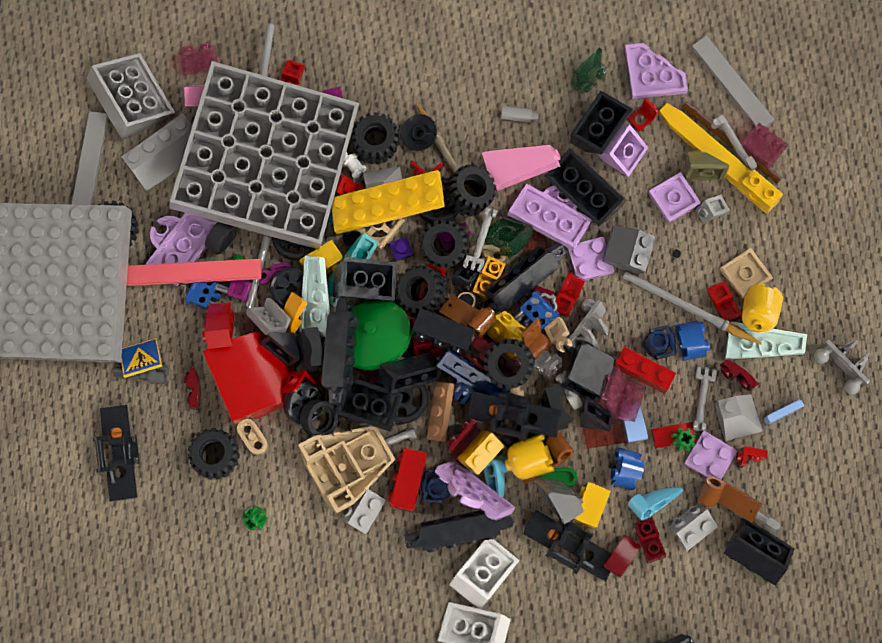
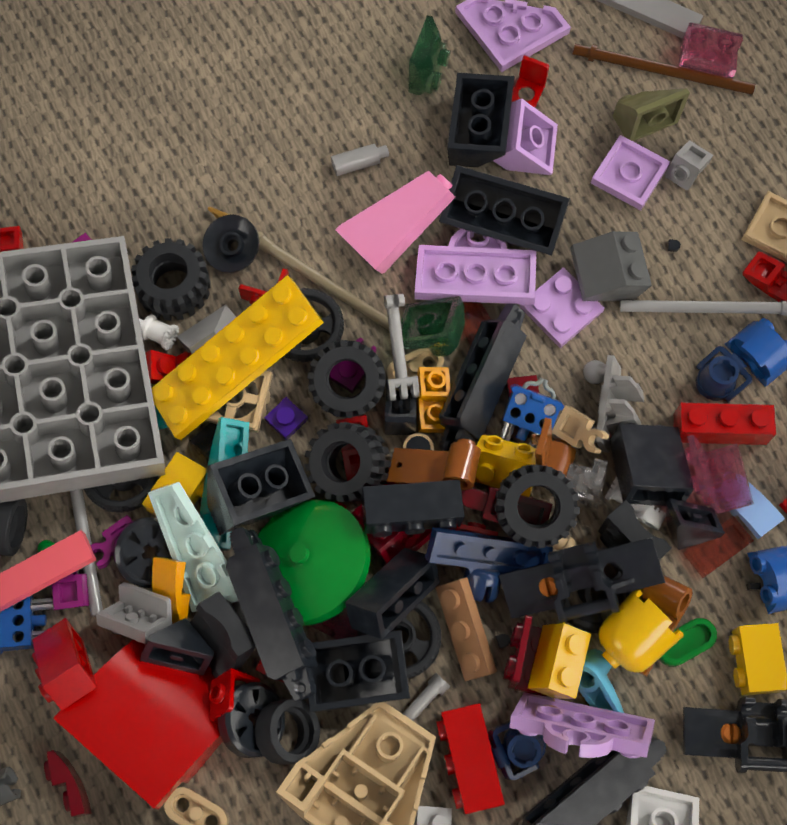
camera: 25 degrees left, 5 degrees down
(461, 199) = (352, 270): black tyre -> none
(560, 499) = (715, 673): dark grey slope -> none
(569, 294) = (559, 367): red slope -> none
(747, 161) = (702, 84): light grey hinge -> none
(748, 182) = (723, 108): yellow piece -> none

